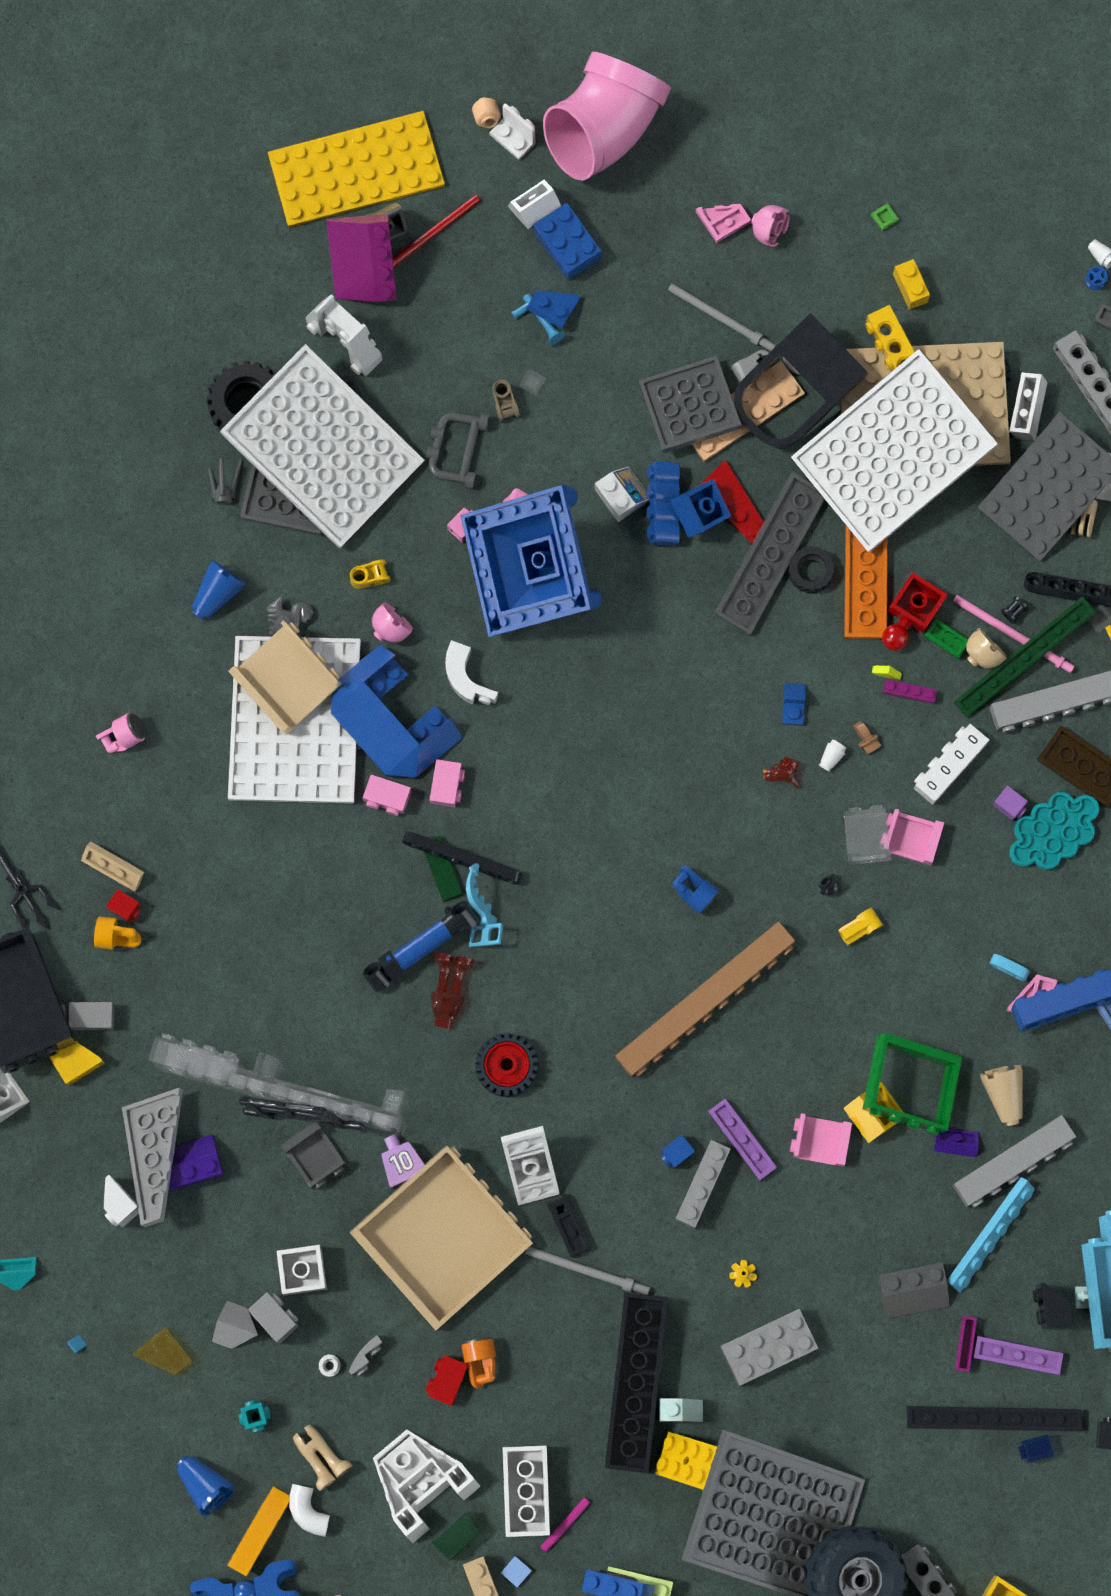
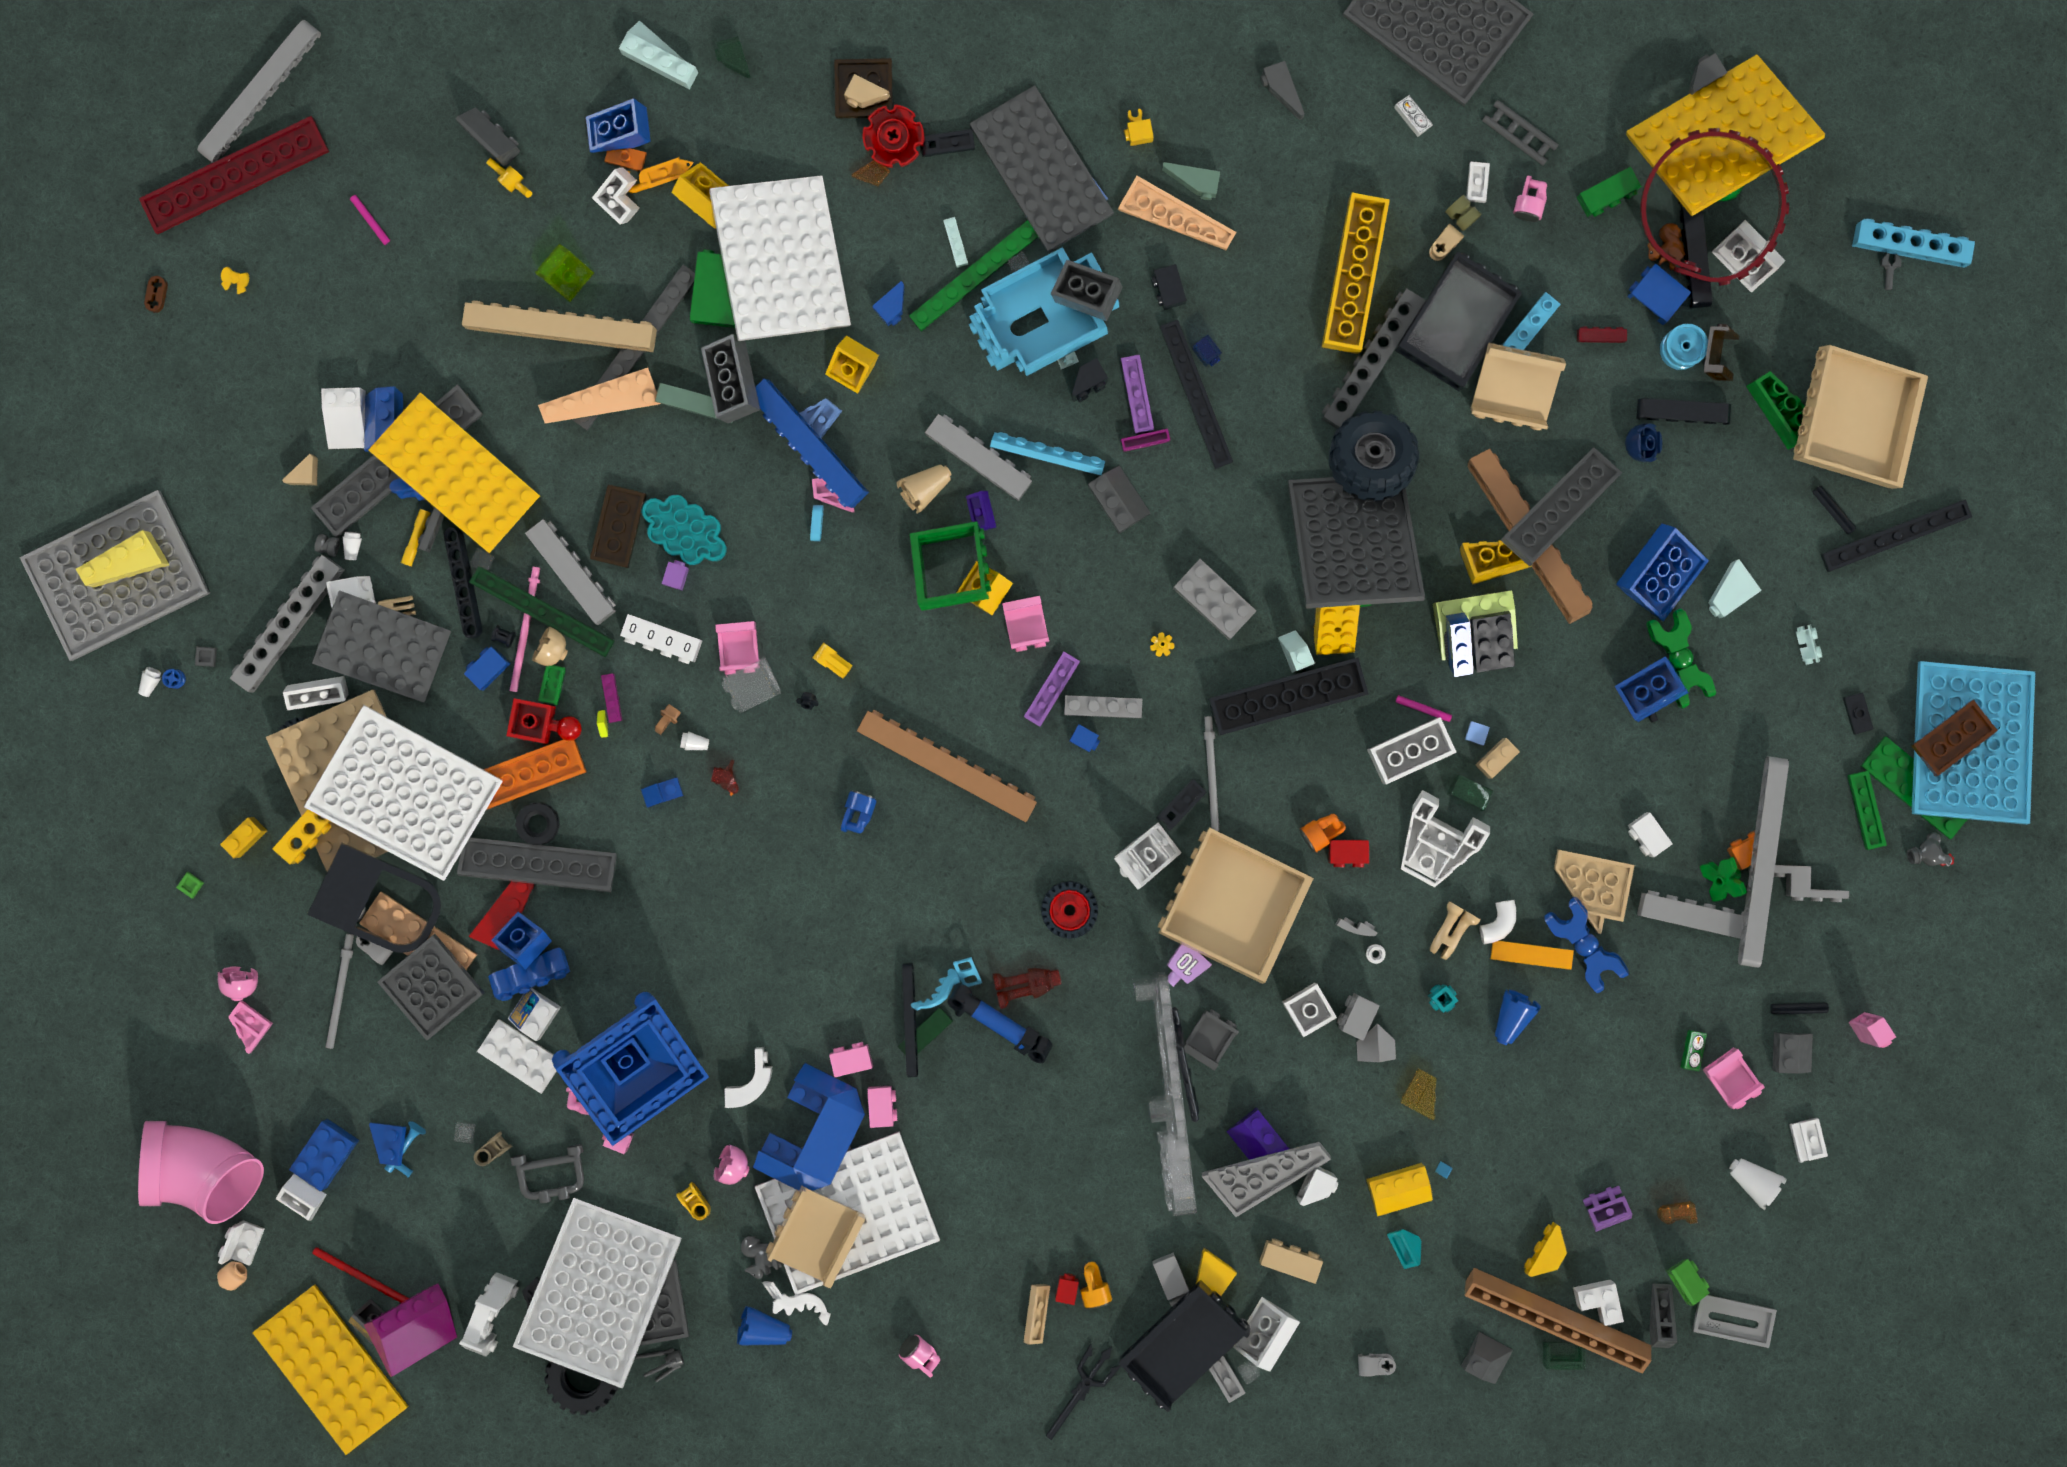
camera: 115 degrees left, 10 degrees up
(53, 1146) = (1291, 1260): none -> tan brick
(76, 1289) = (1400, 1189): none -> yellow slope
(227, 636) = (797, 1301): none -> white piece
(587, 461) = (518, 1056): none -> white plate
(988, 581) = (486, 668): none -> blue brick

